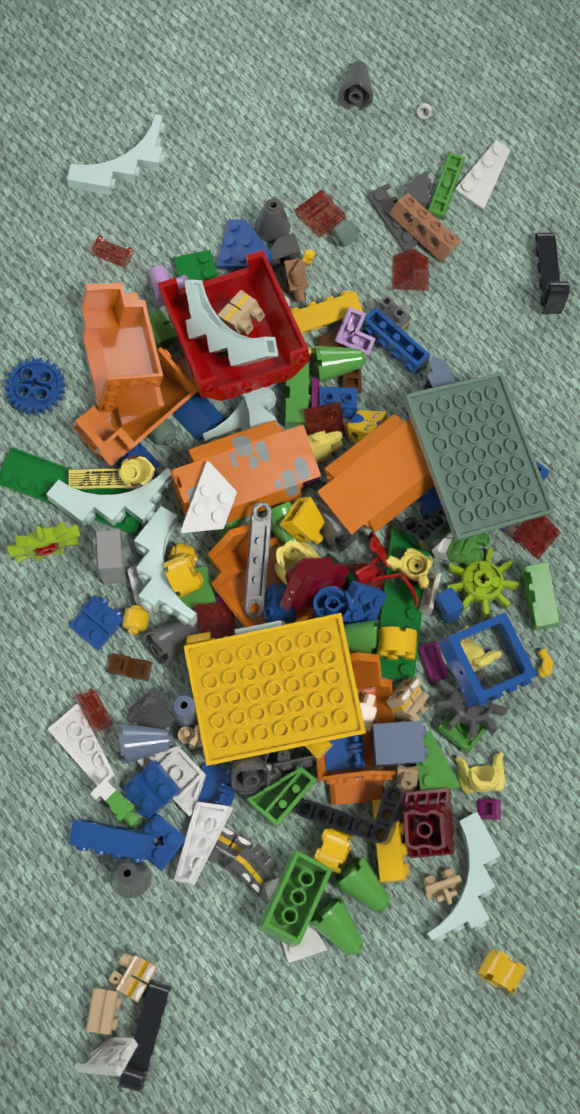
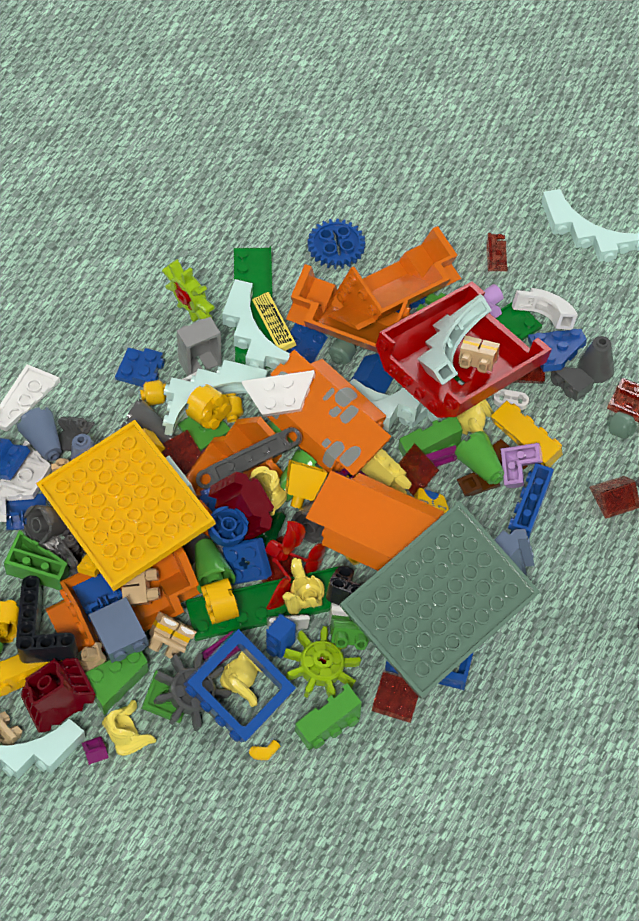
camera: 70 degrees right, 15 degrees down
(95, 710) = (58, 392): clear red hinge -> none
(129, 667) = (110, 407): reddish brown slope -> none
(136, 471) = (285, 333): light yellow hair -> none
(196, 231) = (546, 303): none -> white arch
(296, 274) = (553, 395): medium nougat torso -> none
(346, 396) = (447, 480): blue brick -> none
(394, 312) = (557, 491): flat silver hips -> none

